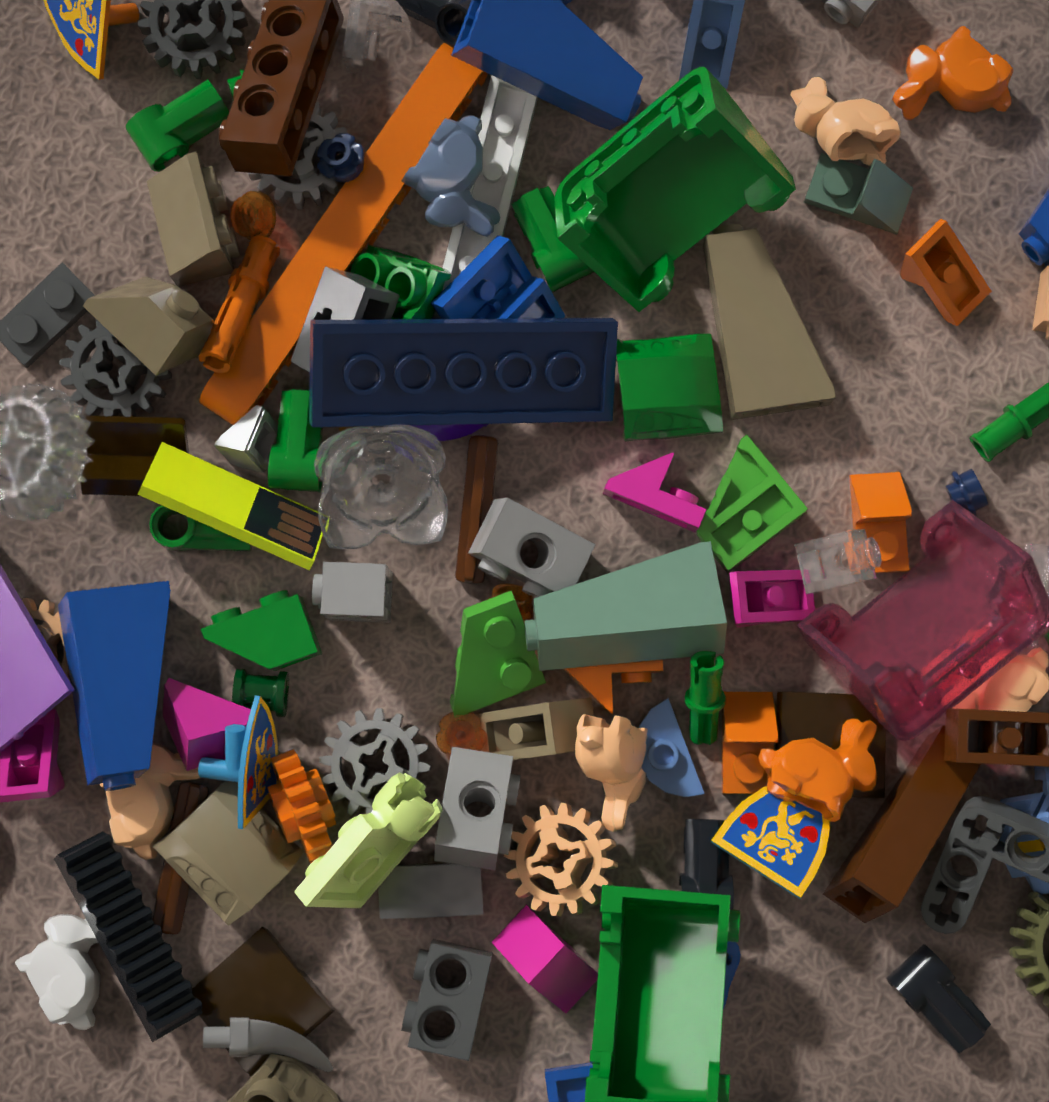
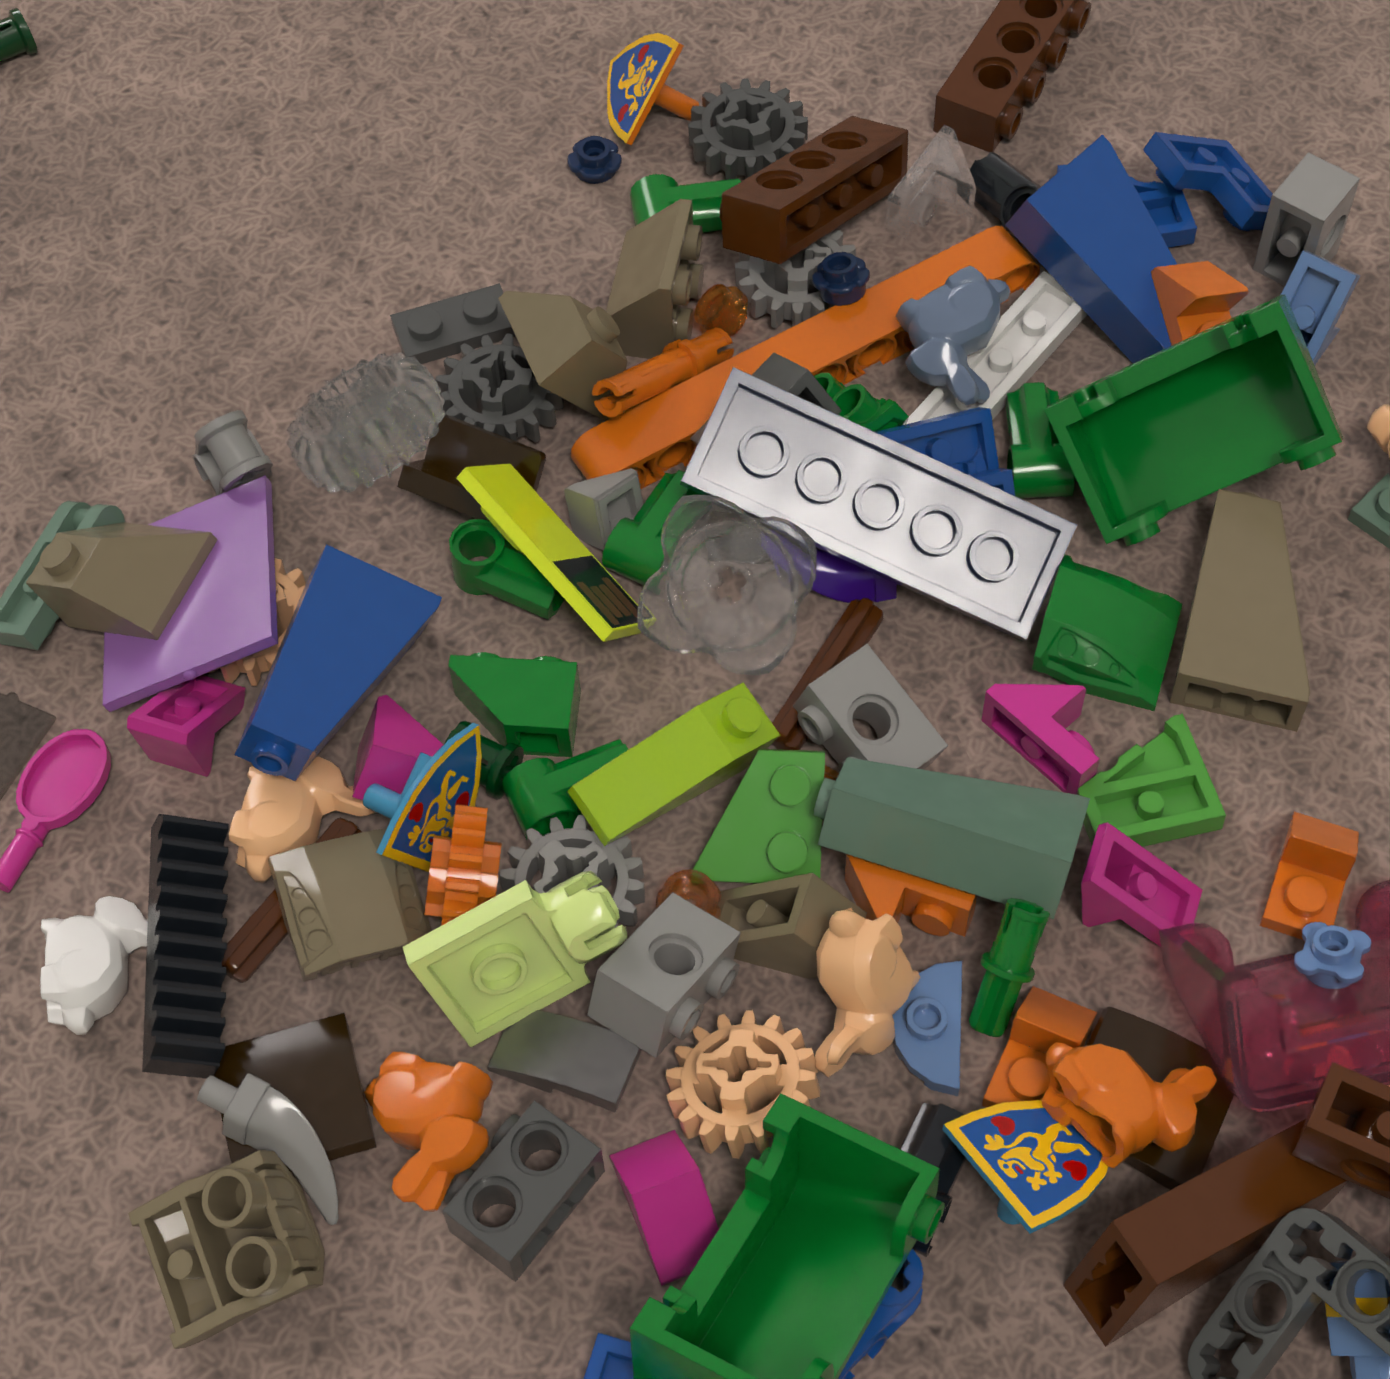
camera: 25 degrees right, 25 degrees down
(83, 112) = (594, 159): none -> dark blue plate
(331, 693) = (540, 786): none -> green piece
(354, 592) = (641, 679): light grey brick -> none
(365, 976) = (434, 1112): none -> orange animal
(409, 648) = (675, 764): none -> lime slope
(630, 71) = (1195, 297): none -> orange slope
(822, 560) = (1240, 880): clear brick -> none
(917, 600) = (1332, 955): none -> medium blue plate

